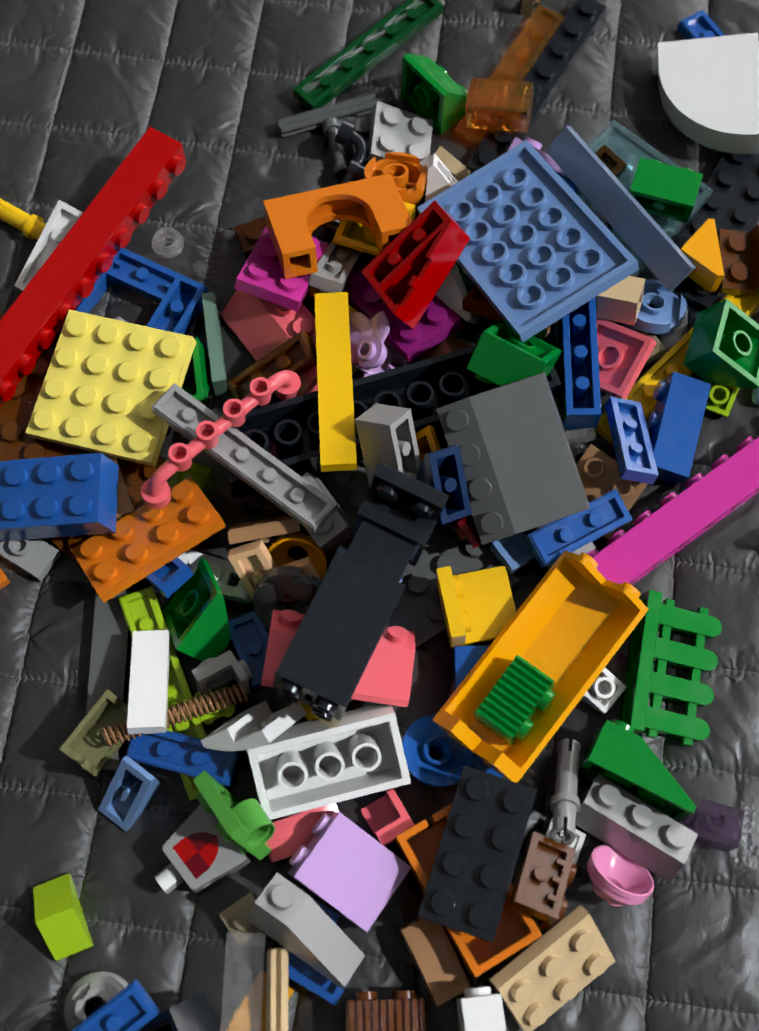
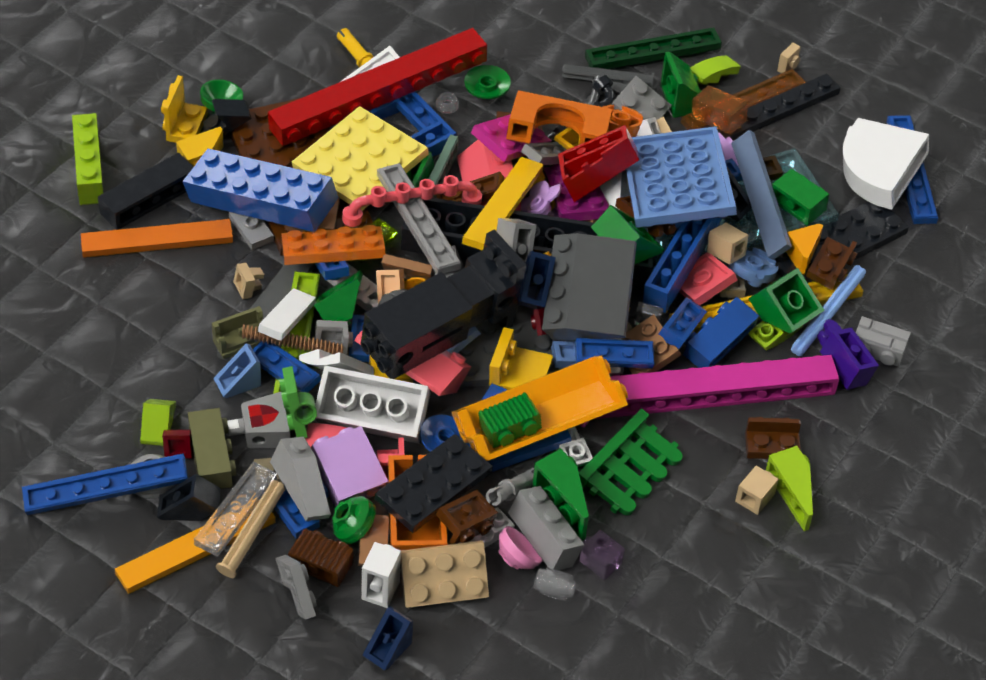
camera: 25 degrees right, 20 degrees down
(63, 638) = (247, 280): none -> tan tile
(109, 947) = (177, 442): none -> dark red tile
(156, 931) = (211, 447): none -> olive brick
(201, 179) = (487, 82): none -> green dish
(407, 942) = (353, 519): none -> green piece
(454, 45) = (713, 68): none -> lime slope
(684, 900) = (555, 584): none -> clear brick

